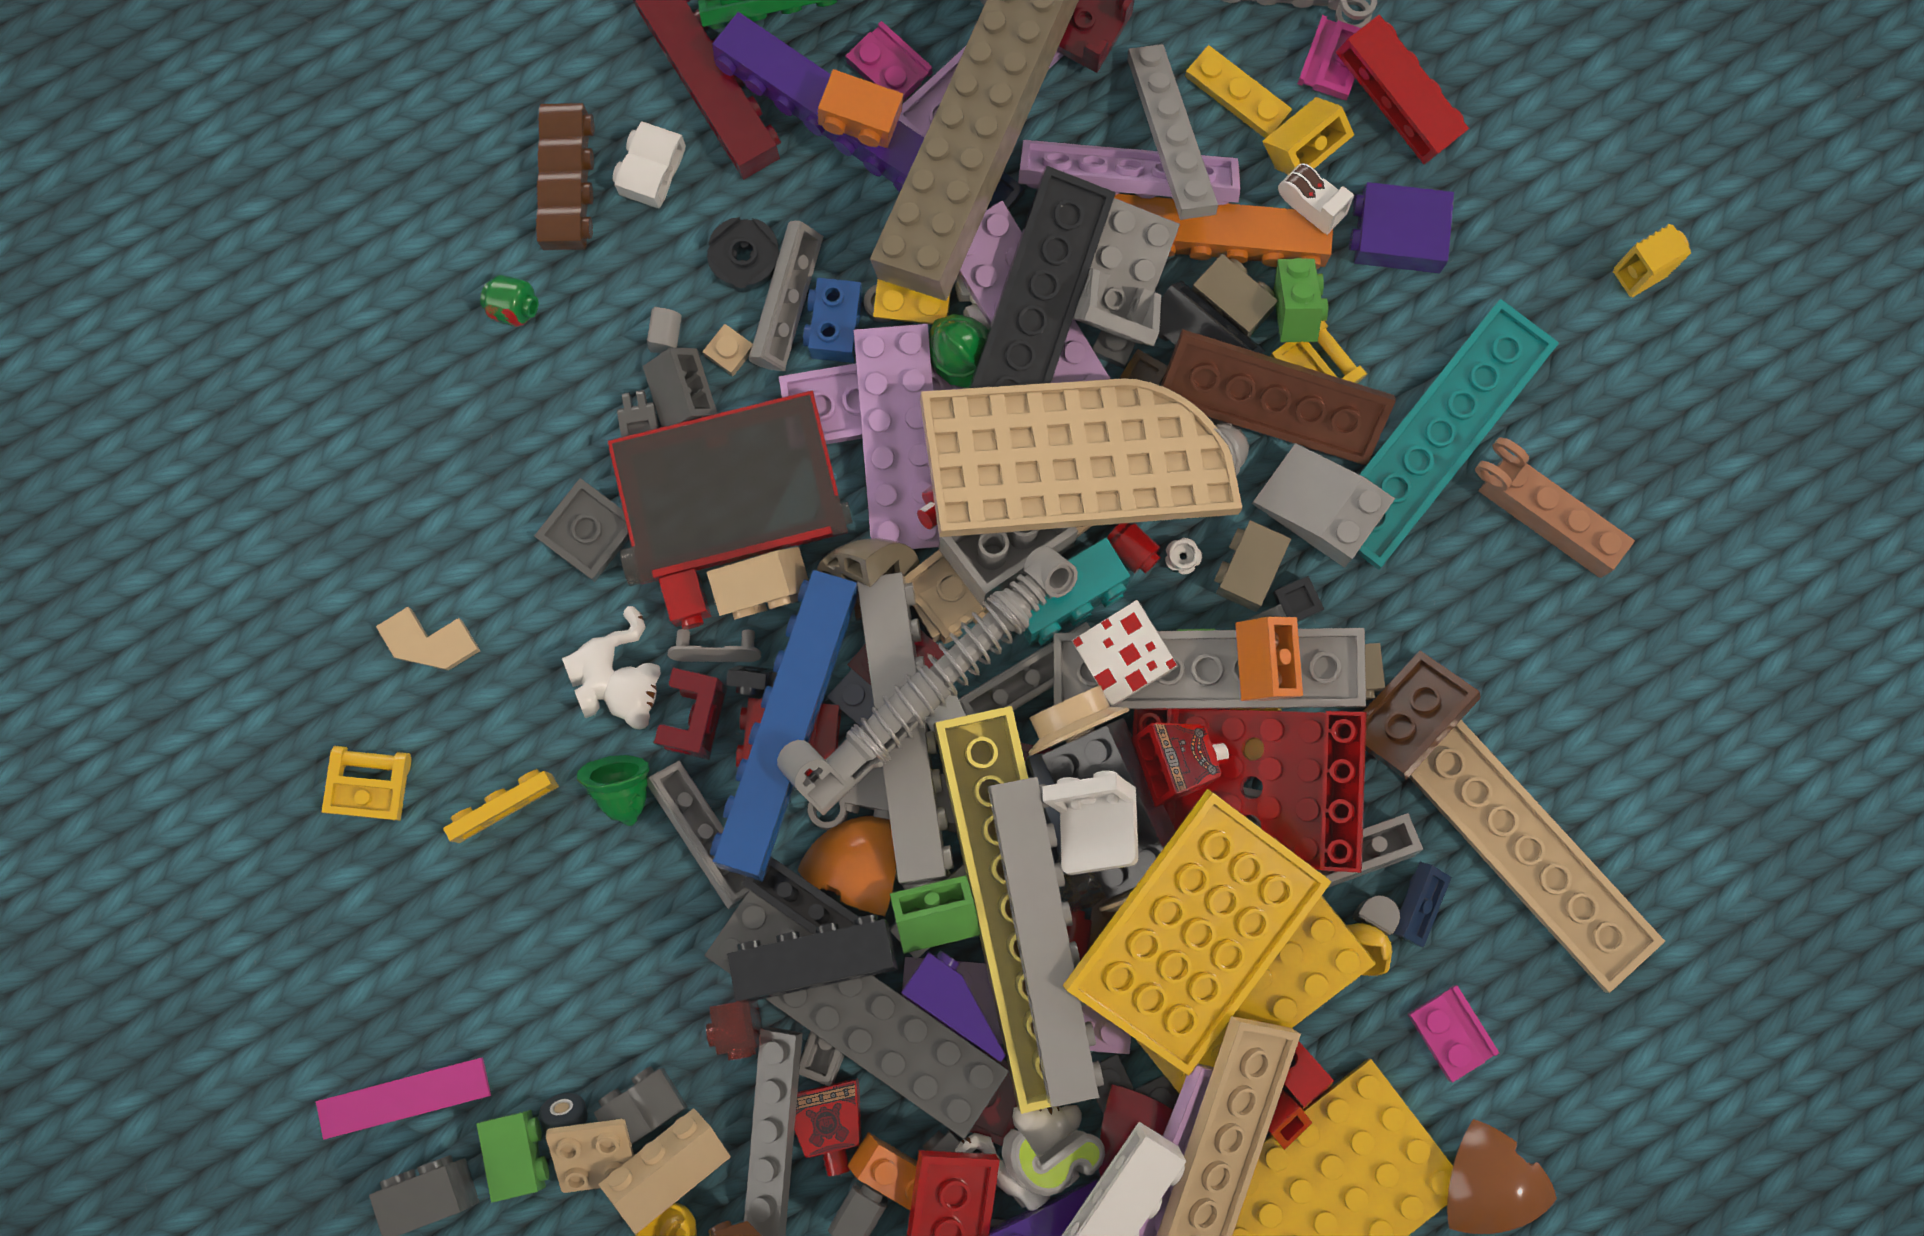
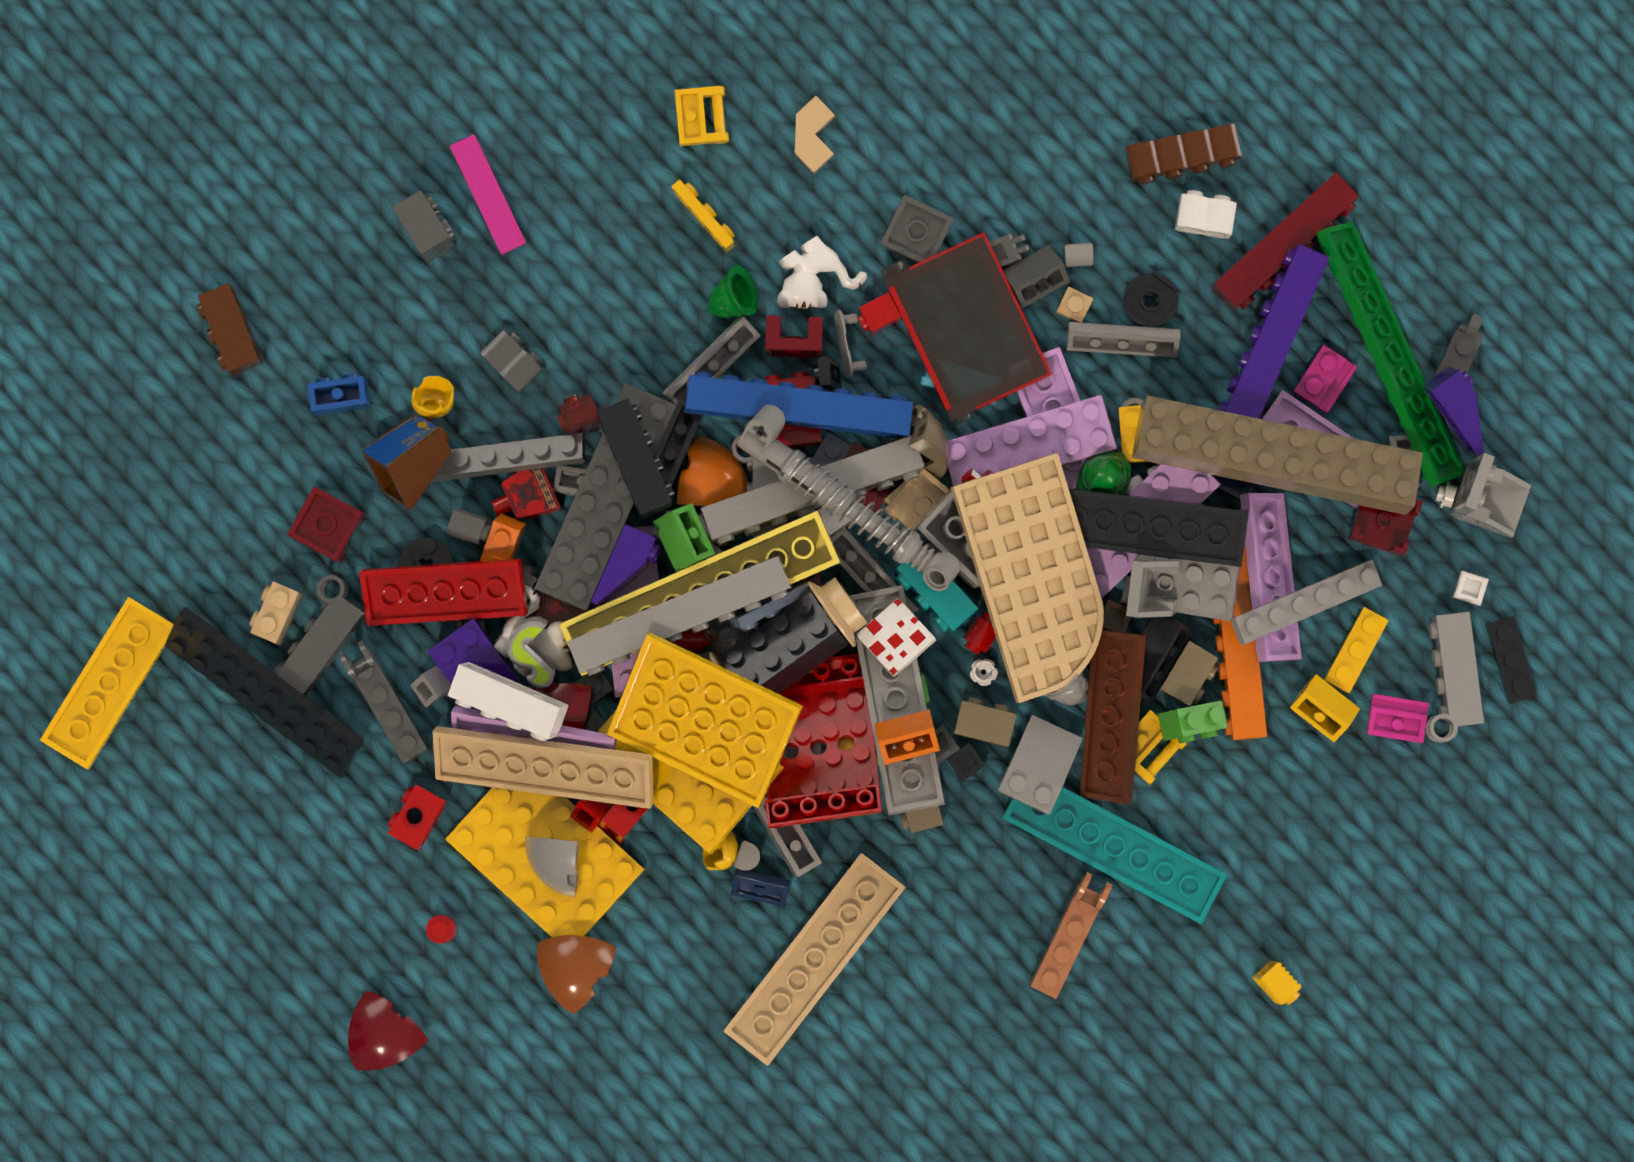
camera: 80 degrees right, 5 degrees up
(509, 300) = (1078, 135): green head -> none
(512, 1155) = (463, 280): bright green brick -> none
(582, 1151) = (475, 331): tan plate -> none
(664, 1170) = (474, 387): tan brick -> none
(752, 583) = (899, 365): tan brick -> none
(834, 318) = (1112, 379): blue brick -> none
(859, 109) = (1266, 364): orange brick -> none
(1095, 822) = (767, 634): white bracket -> none
(1178, 759) = (825, 688): torso -> none
(1315, 197) = (1273, 719): white leg -> none
(1346, 1184) = (554, 863): none -> light grey brick
(1402, 89) = (1378, 773): red brick -> none
(1402, 227) = (1269, 791): dark purple brick -> none
(1416, 713) = (896, 858): reddish brown plate -> none
(1453, 1033) = (673, 926): dark pink plate -> none

